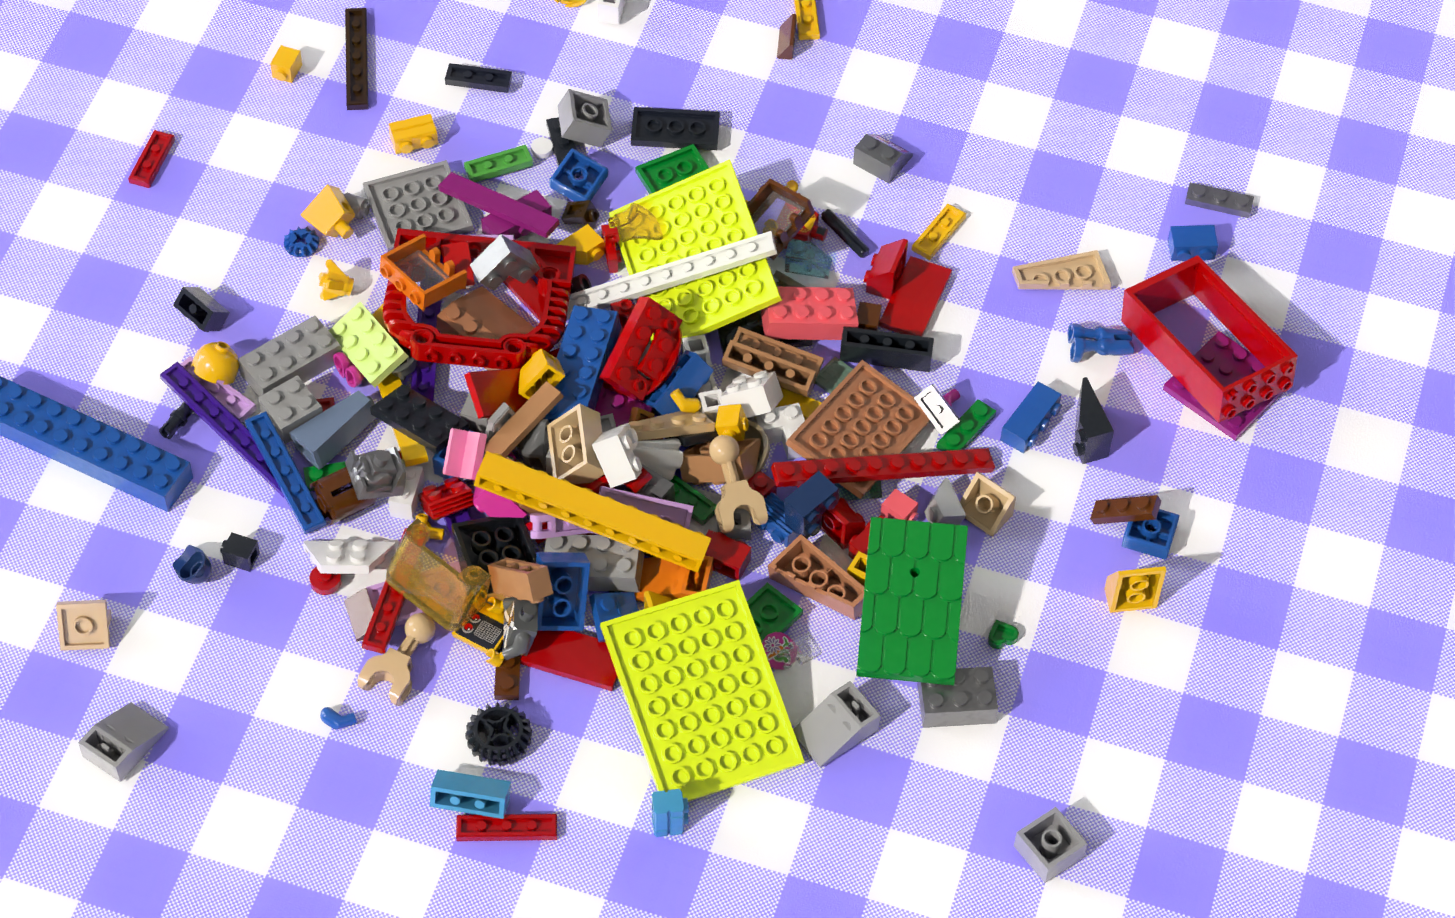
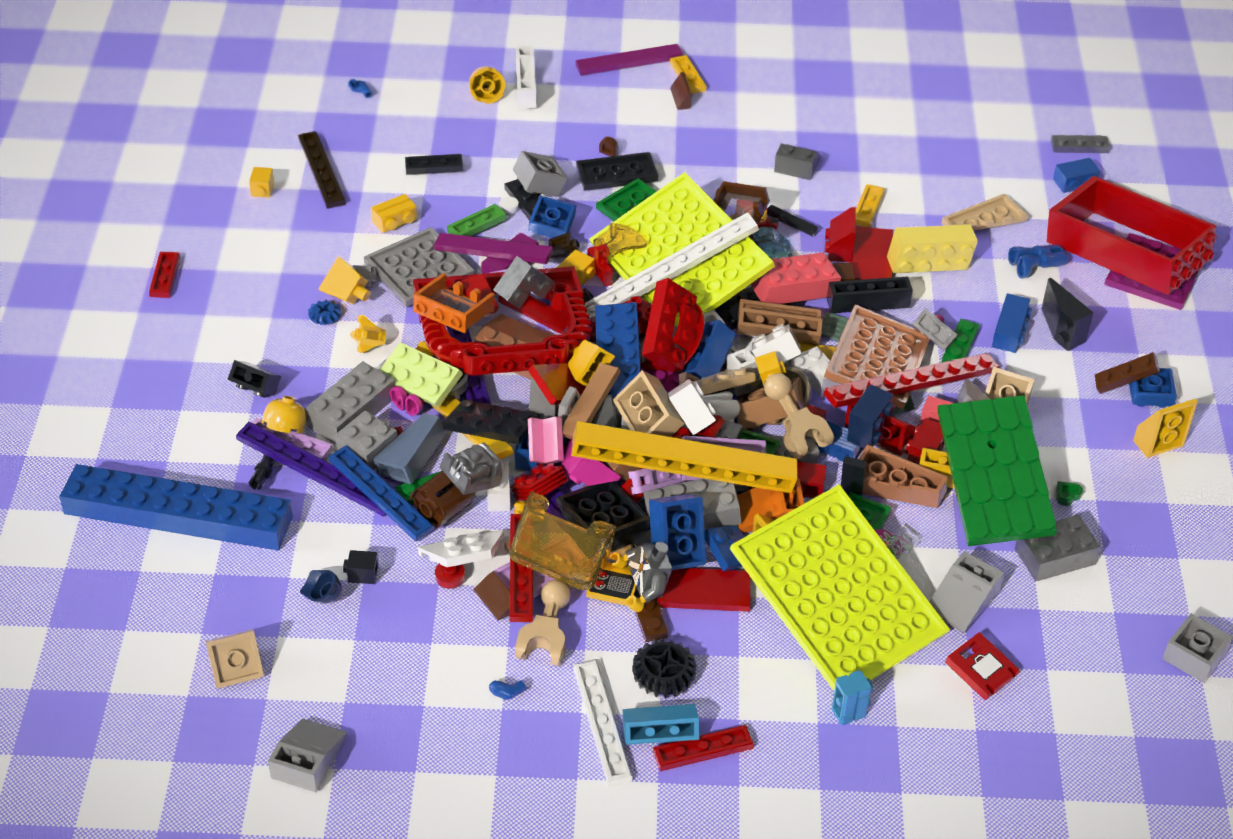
camera: 15 degrees left, 10 degrees down
(418, 777) = (602, 723): none -> white tile
(520, 580) = (644, 525): medium nougat brick -> none
(678, 95) = (609, 146): none -> reddish brown tile
(687, 405) = (721, 365): yellow arm -> none
(767, 569) = (853, 475): none -> black tile
(822, 812) = (984, 668): none -> red container
(977, 307) = (932, 248): none -> light yellow brick

